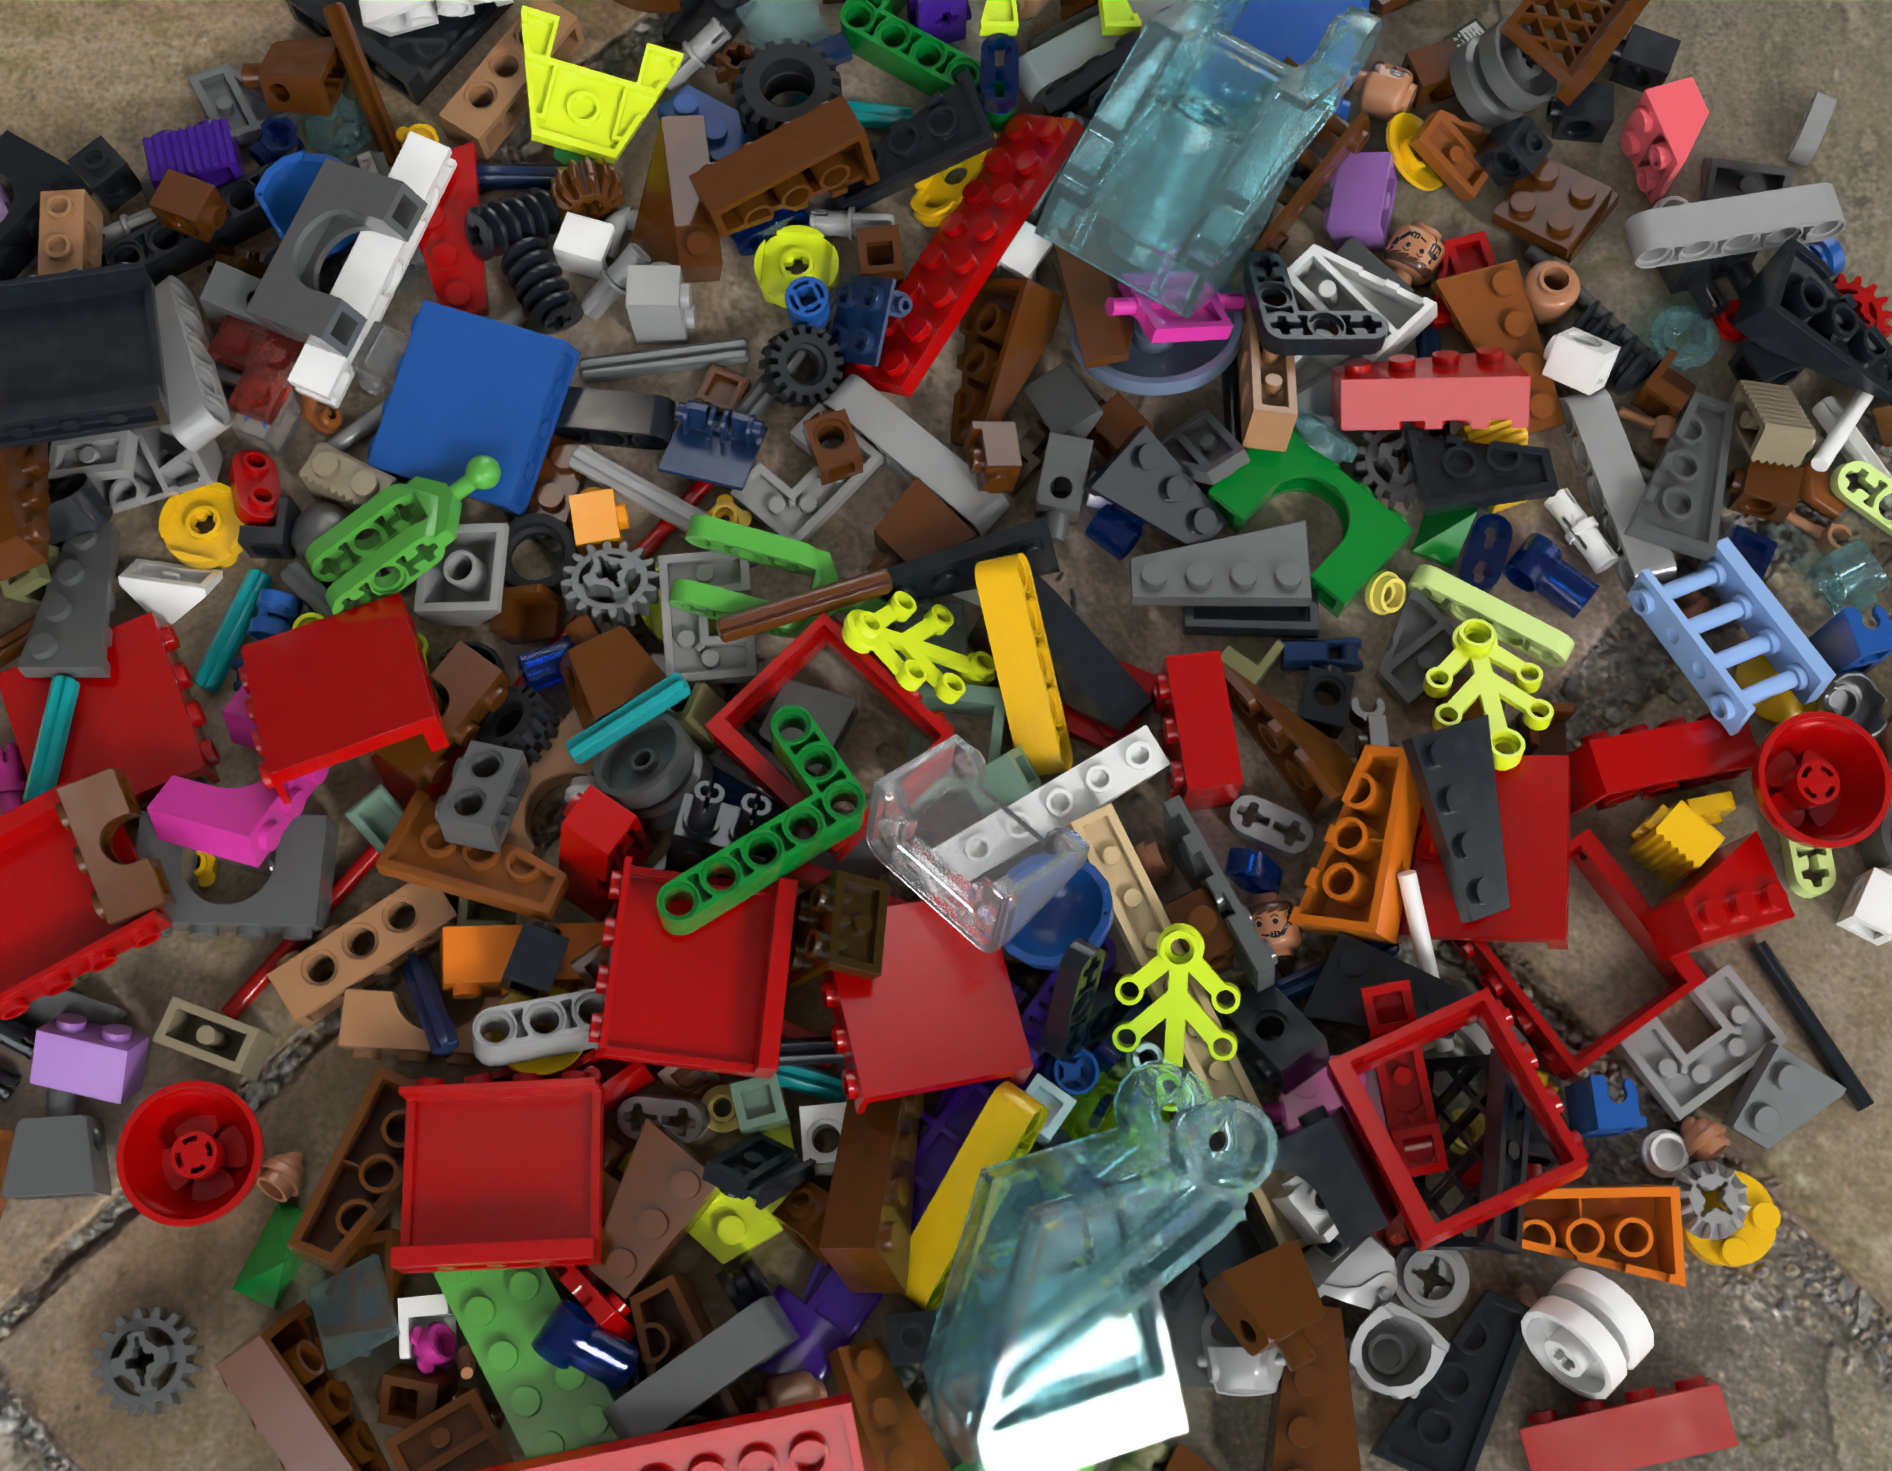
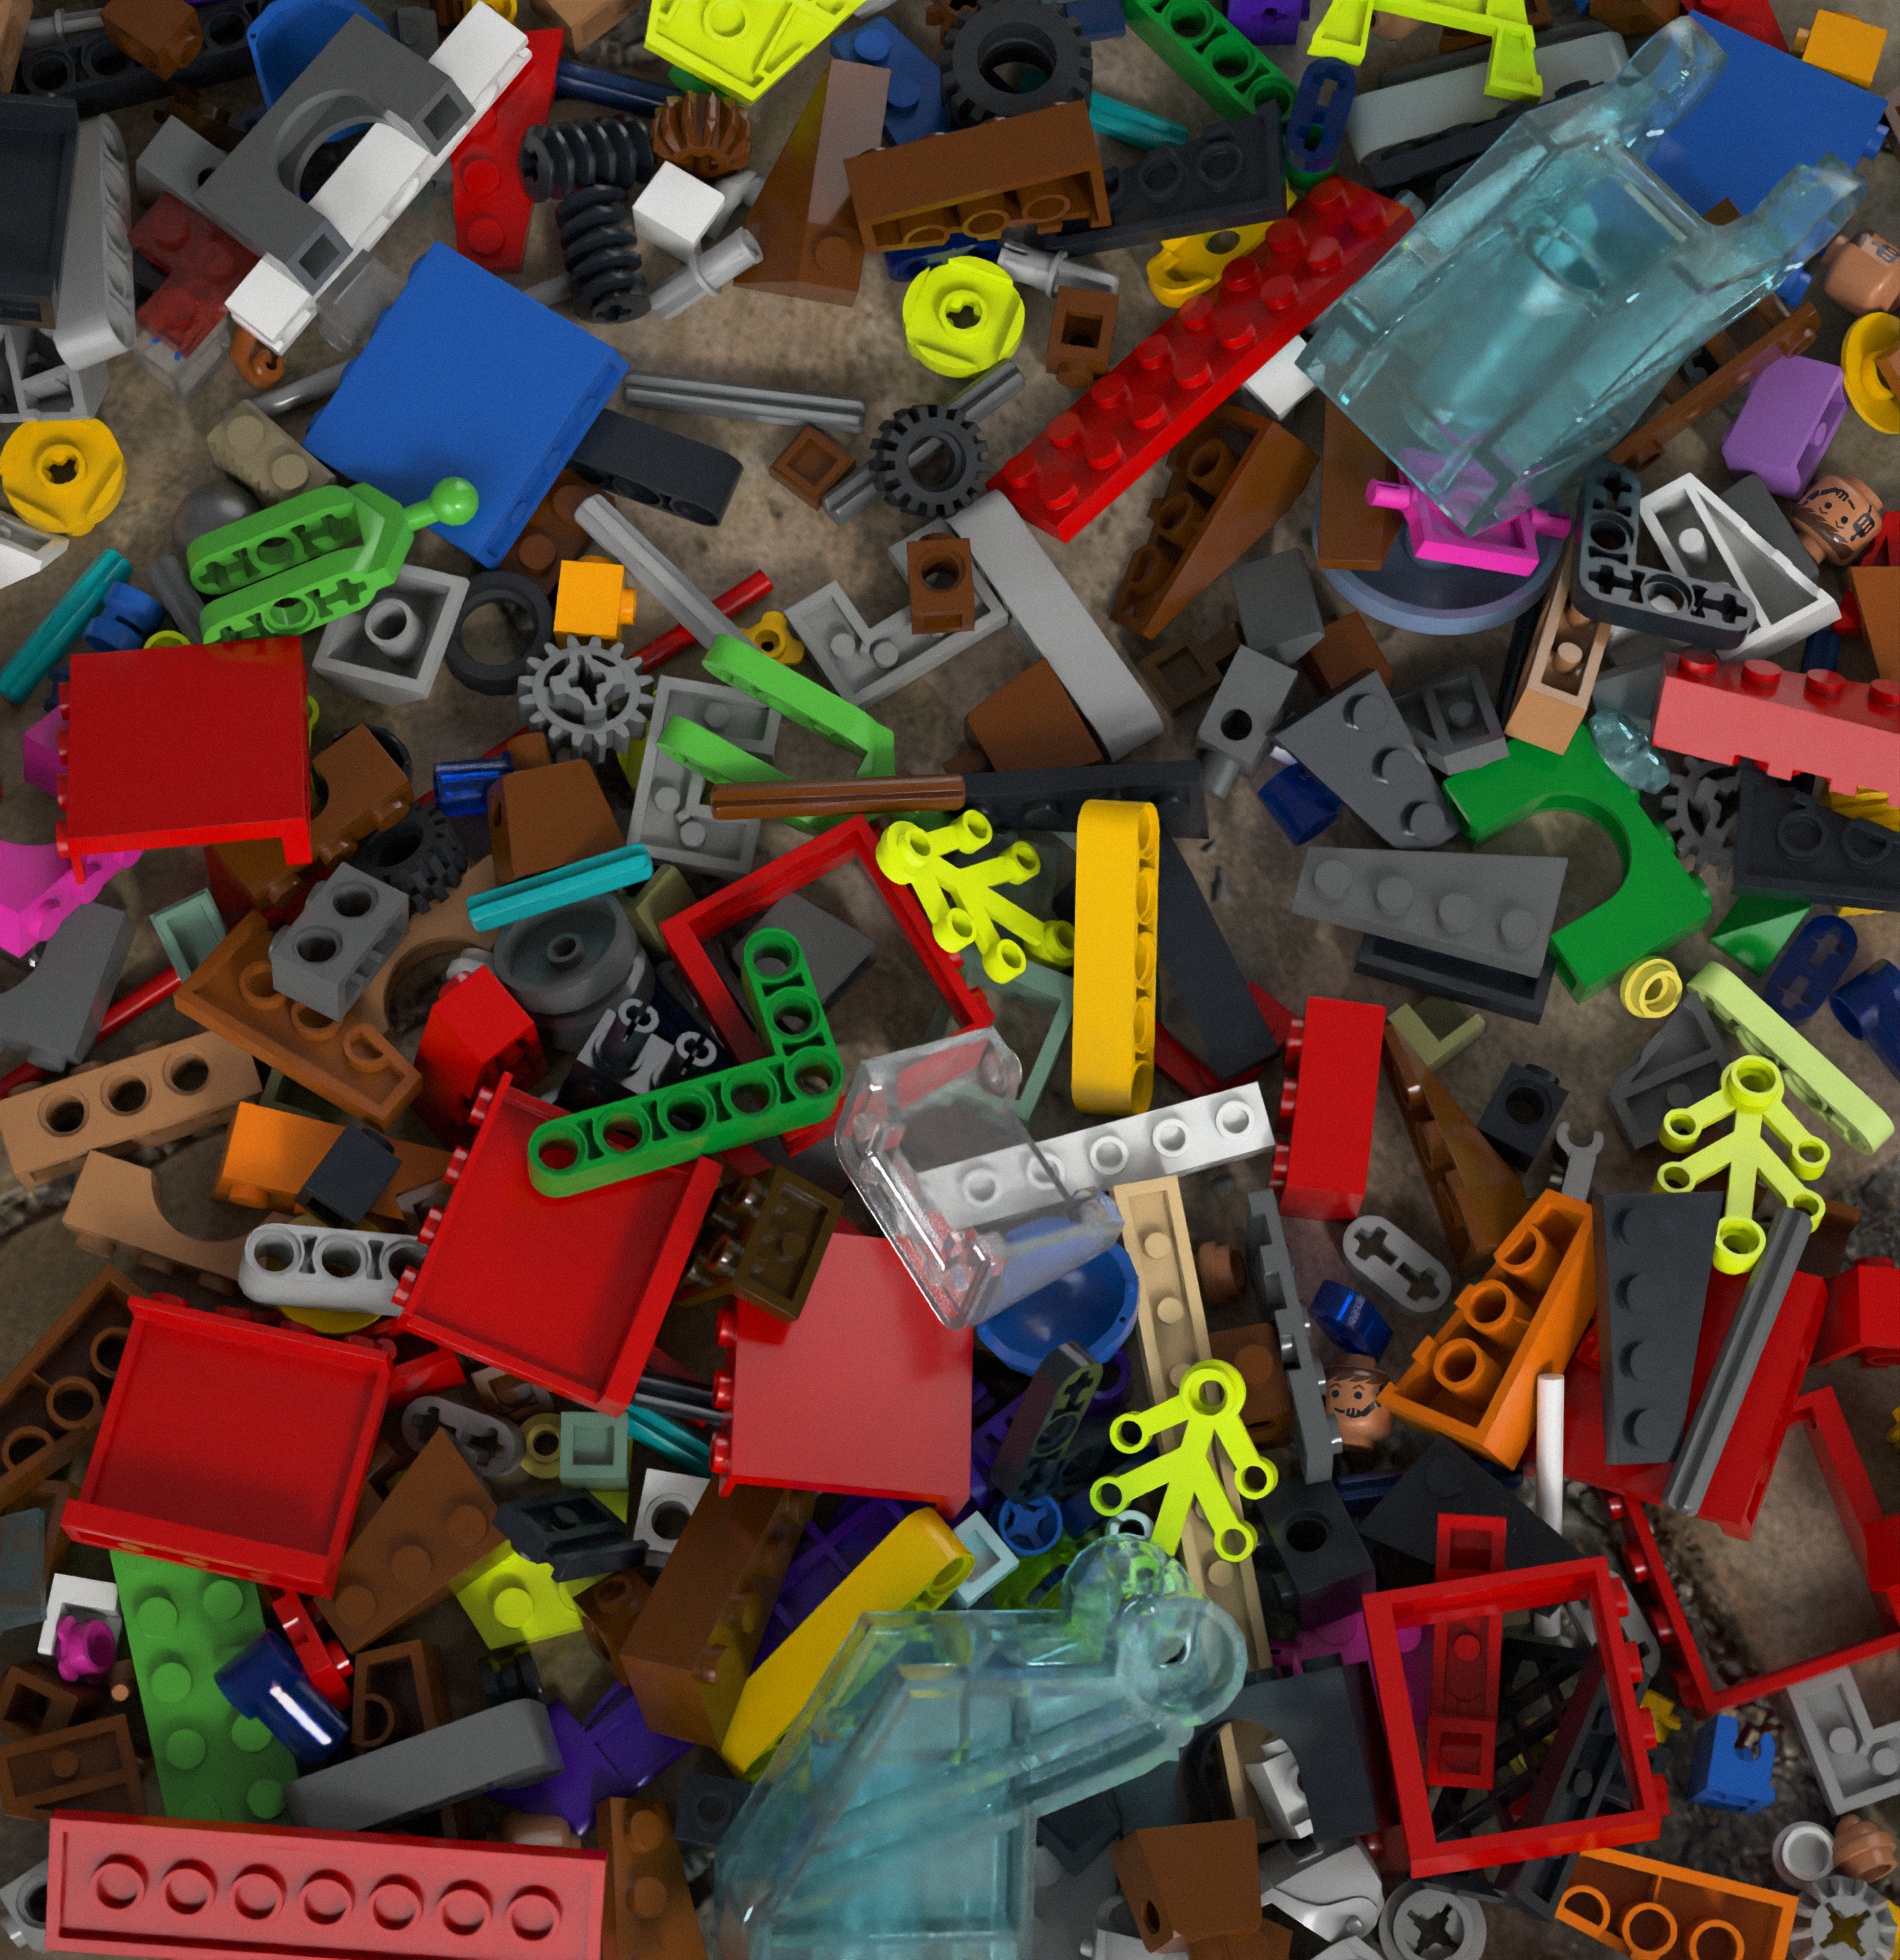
camera: 15 degrees right, 0 degrees up
(253, 479) = (140, 426): red plate -> none
(272, 541) = (148, 503): black panel -> none
(430, 1005) = (196, 1200): dark blue axle -> none
(528, 615) = (464, 710): reddish brown panel -> none
(659, 304) = (757, 324): light grey brick -> none
(713, 446) = (778, 541): dark blue hinge -> none
(808, 311) = (959, 387): blue wheel -> none
(863, 316) = (1032, 413): dark blue hinge -> none
(993, 455) = (1157, 655): reddish brown brick -> none
(1011, 776) = (1054, 1103): sand green panel -> none
(1301, 654) = (1523, 1044): dark blue bar -> none
(1529, 829) = (1736, 1362): none -> dark grey axle

